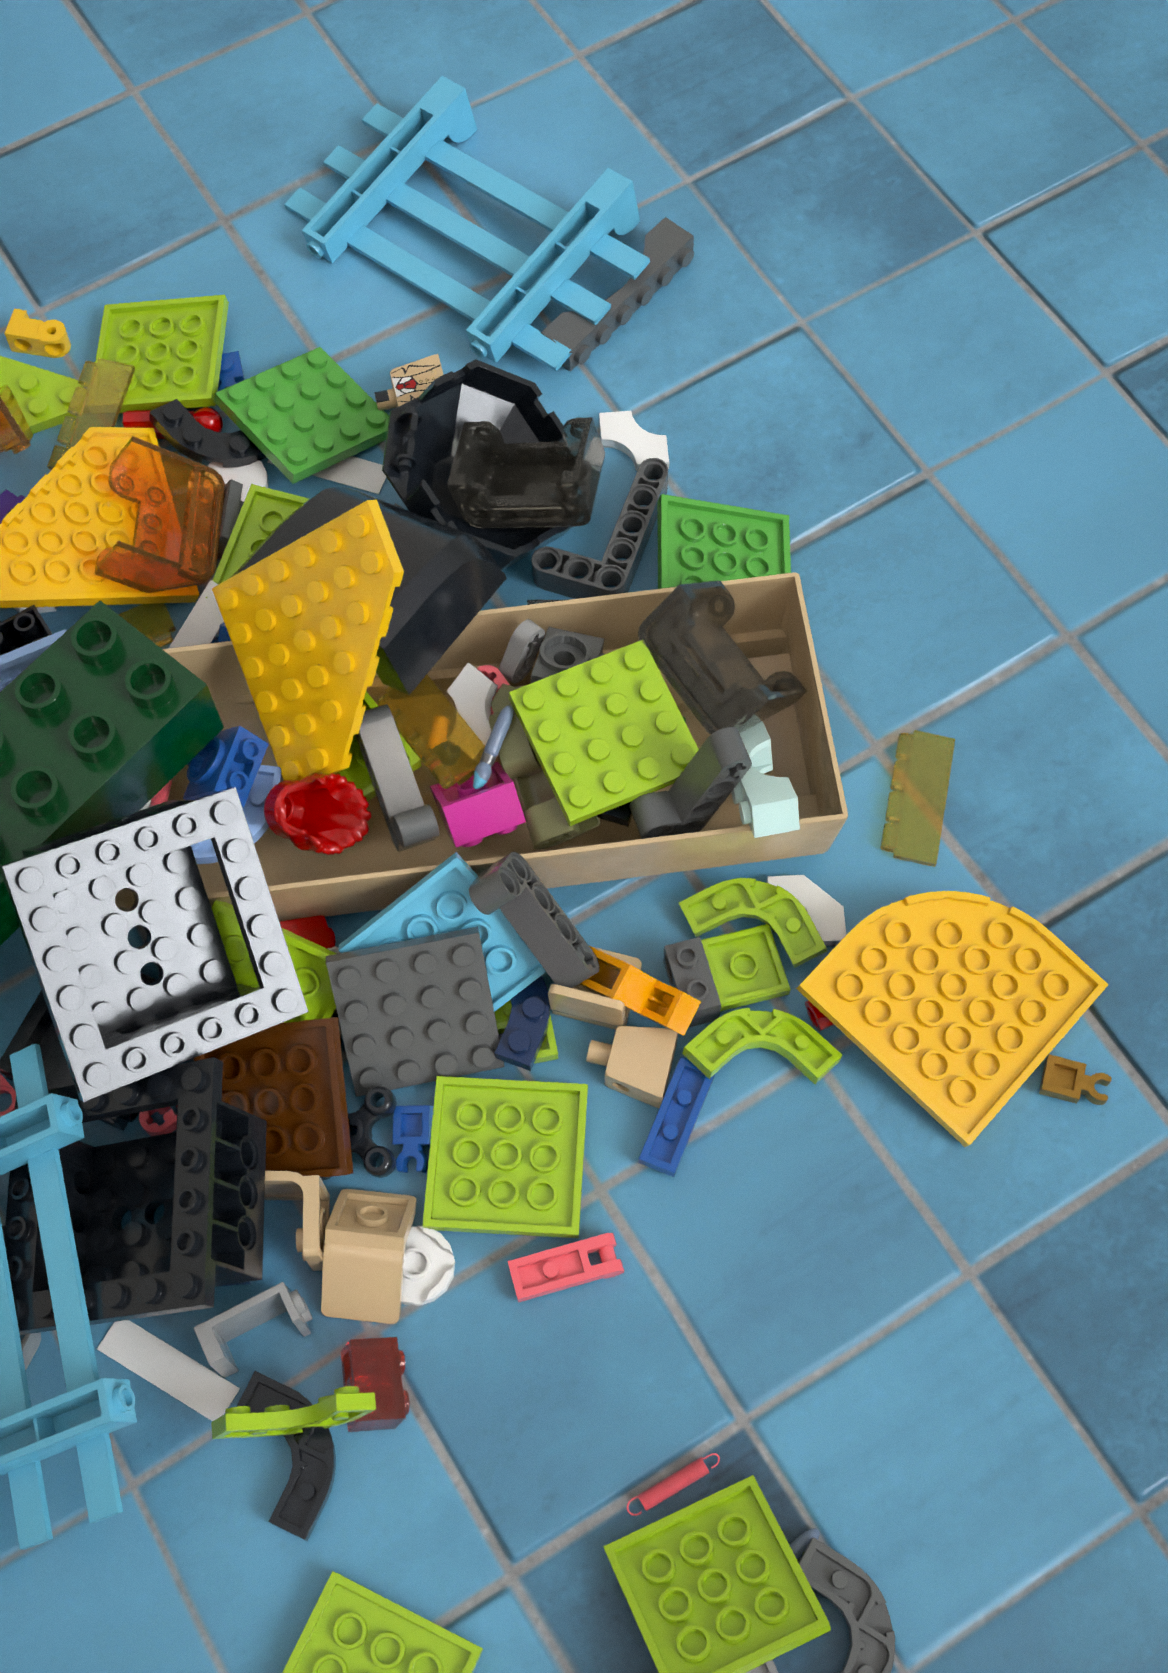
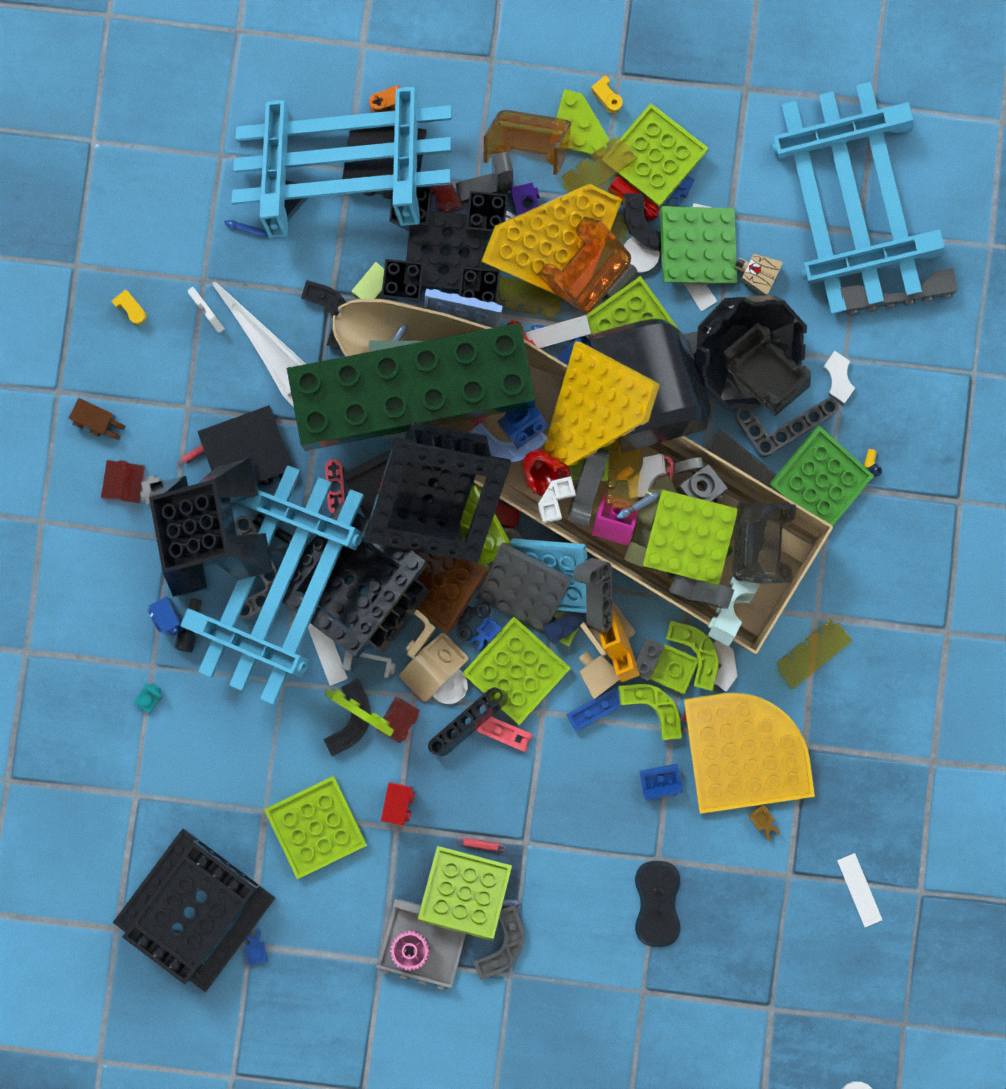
camera: 40 degrees right, 20 degrees up
(353, 841) = (556, 491): none -> white tile
(477, 1307) = (477, 720): none -> black beam
(477, 1525) = (397, 804): none -> red piece
(764, 503) = (870, 463): none -> arm
(869, 1145) = (661, 782): none -> blue bracket
(1055, 1371) = (657, 887): none -> black plate

